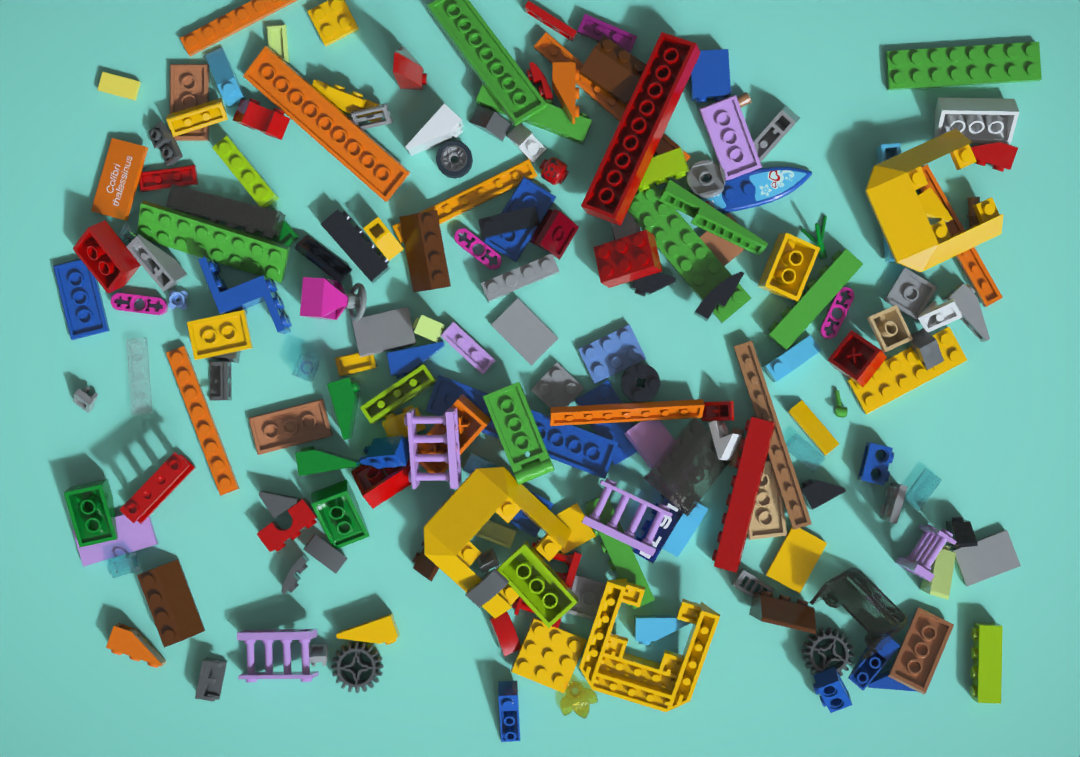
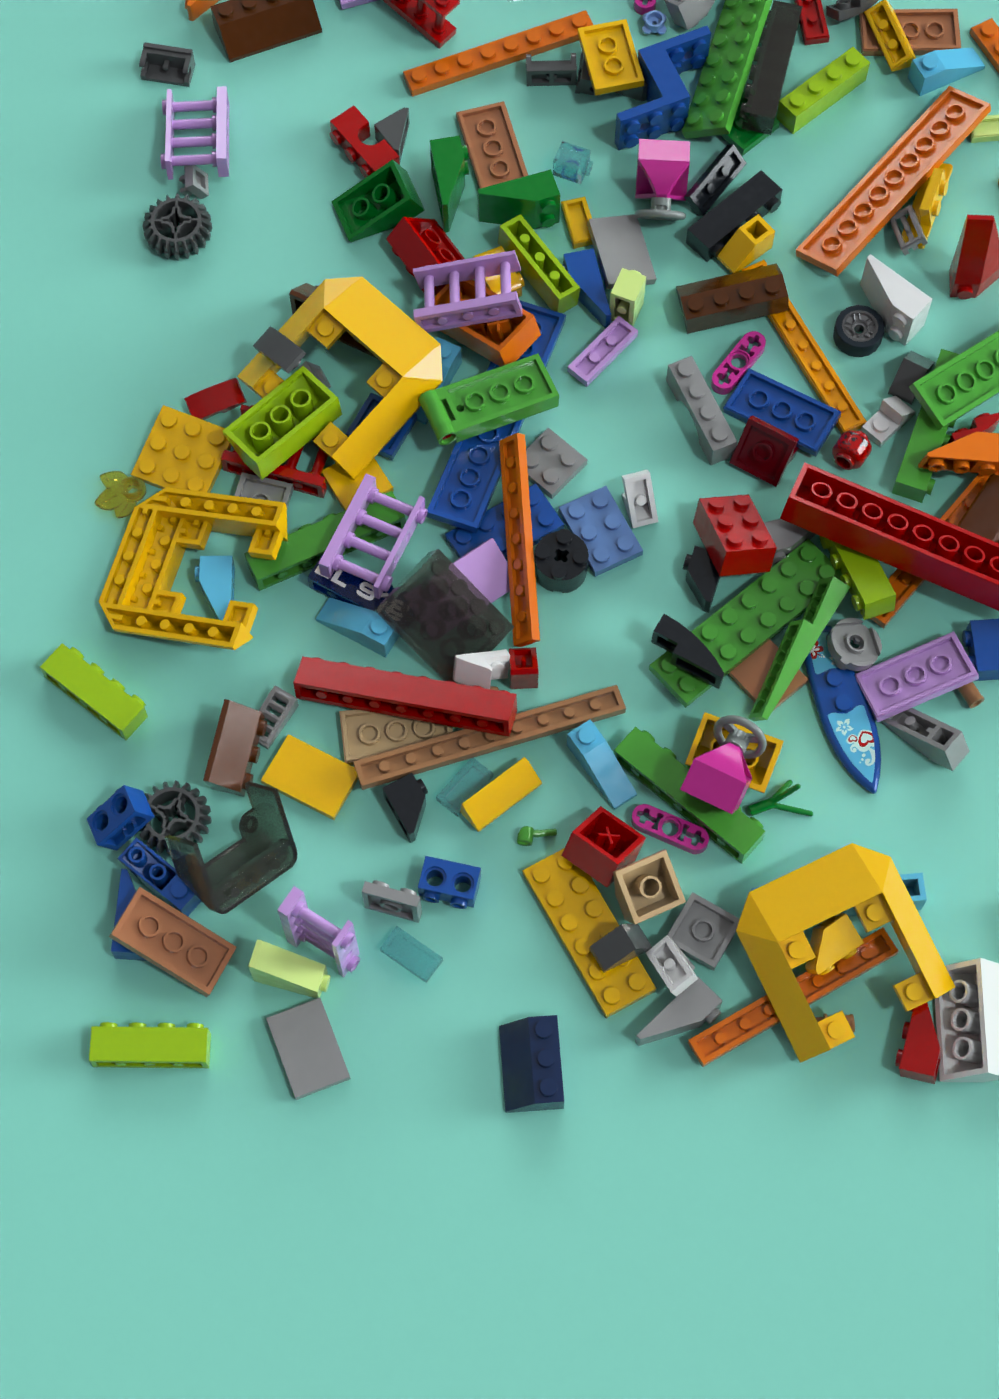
camera: 90 degrees right, 20 degrees down
(262, 119) = (894, 107): red brick -> none
(292, 578) = (299, 151): dark grey slope -> none
(325, 553) = (326, 188): dark grey slope -> none
(374, 631) = (223, 247): yellow slope -> none
(386, 452) = (459, 243): blue hinge -> none
(497, 533) = (353, 389): yellowish green tile -> none
(508, 222) = (776, 388): black slope -> none
(509, 711) = (111, 406): blue slope -> none
(524, 331) = (627, 421): light grey tile -> none
(591, 325) = (639, 499): none -> white slope
(733, 711) = (94, 691): none -> lime brick
(818, 278) = (722, 773): none -> dark pink piece
(962, 532) = (346, 1001): black slope -> none
(1001, 410) = (531, 1064): none -> dark blue slope

